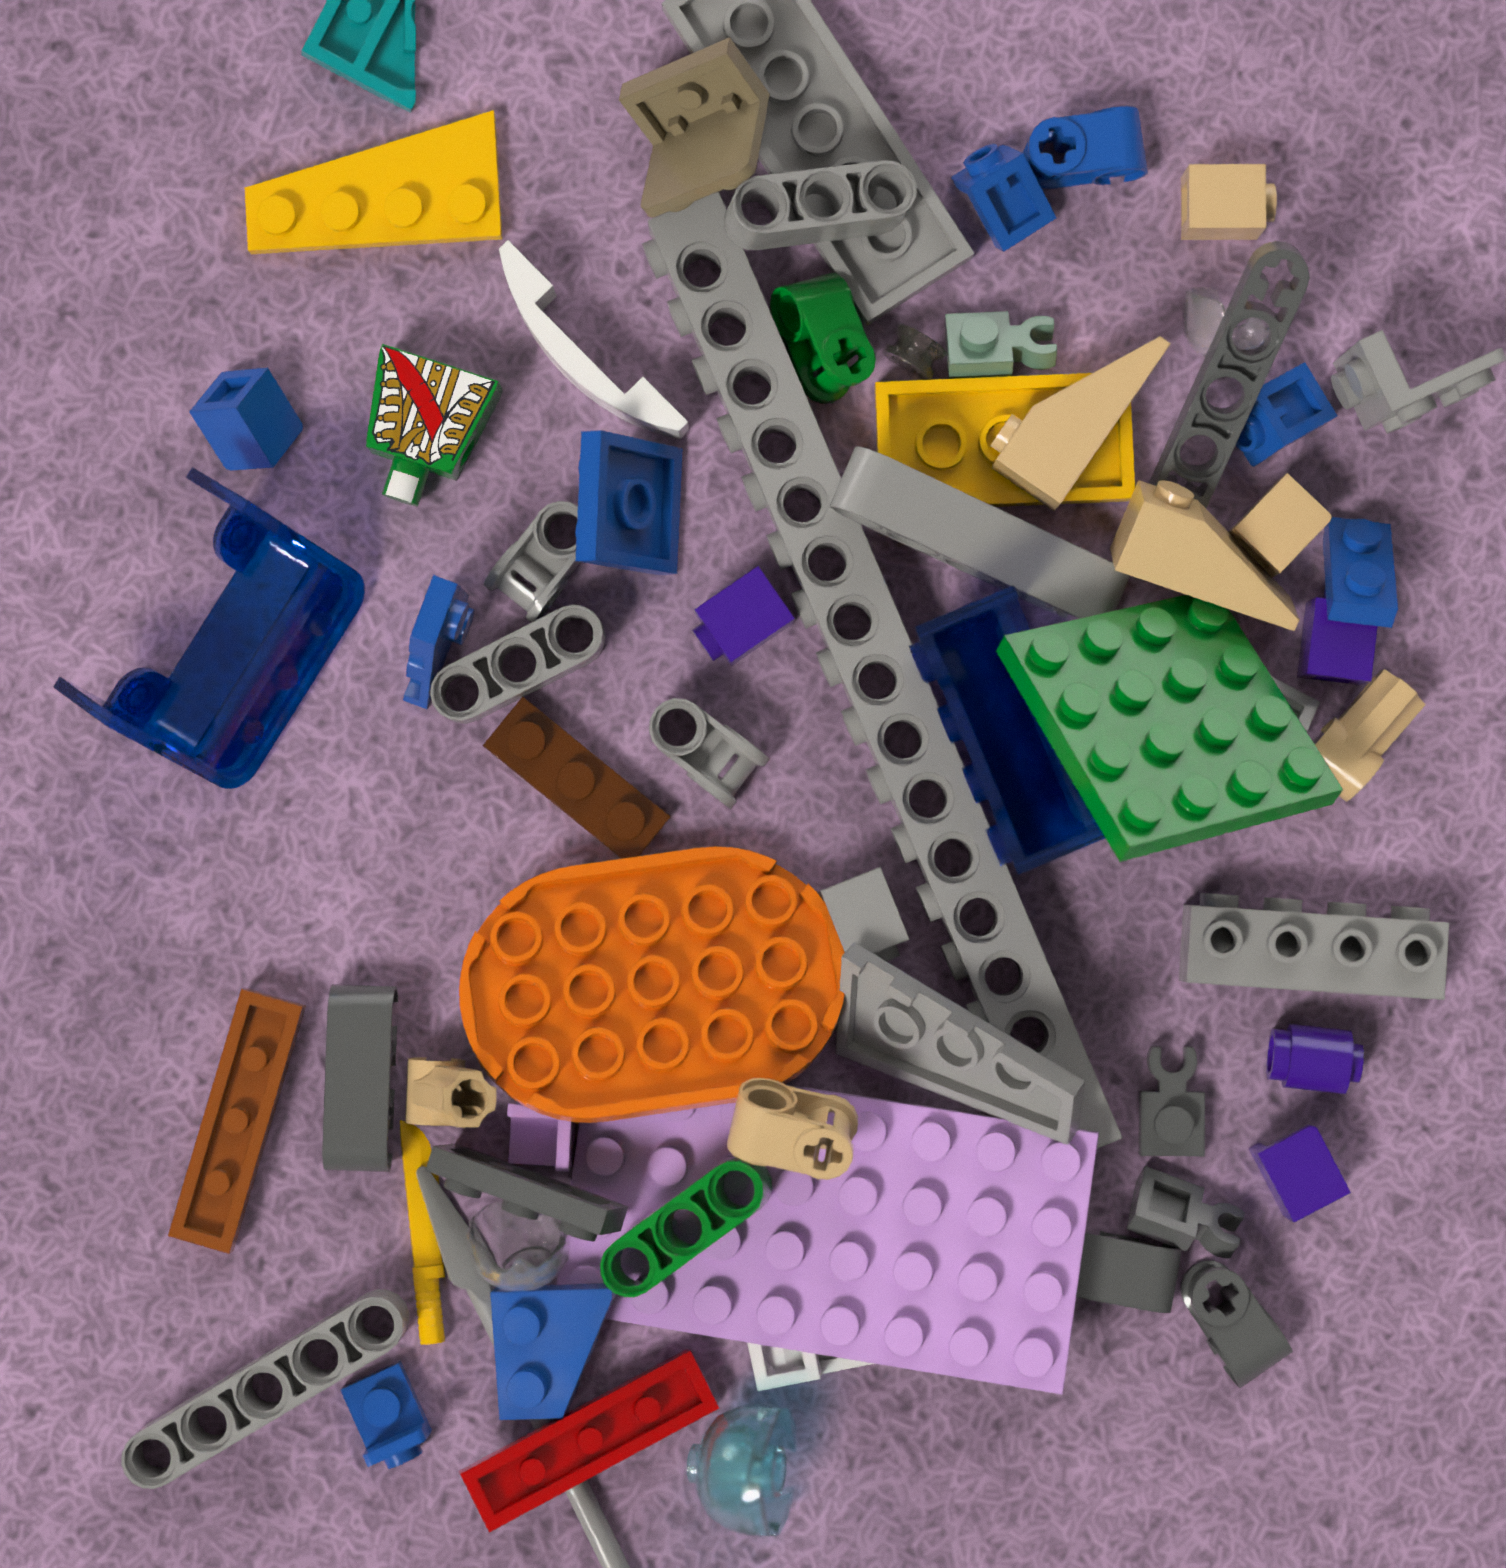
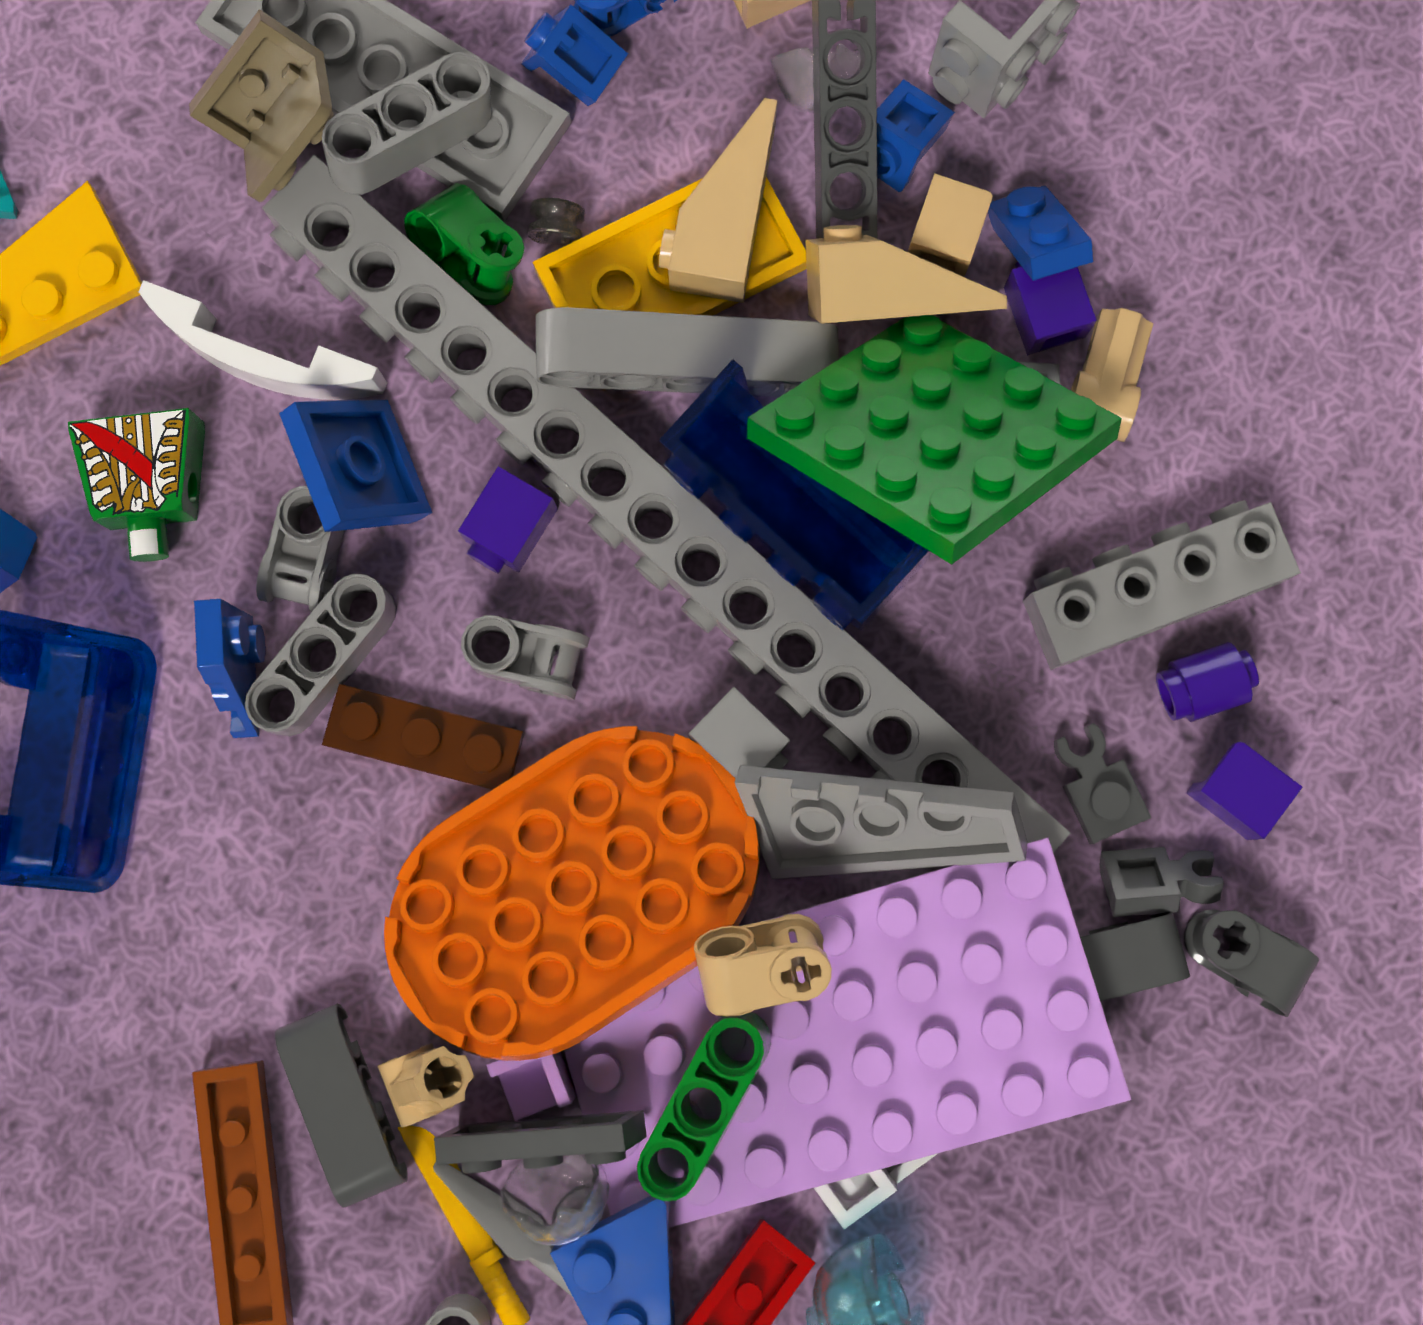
camera: 20 degrees left, 5 degrees down
(987, 344) = (622, 187): sand green plate -> none

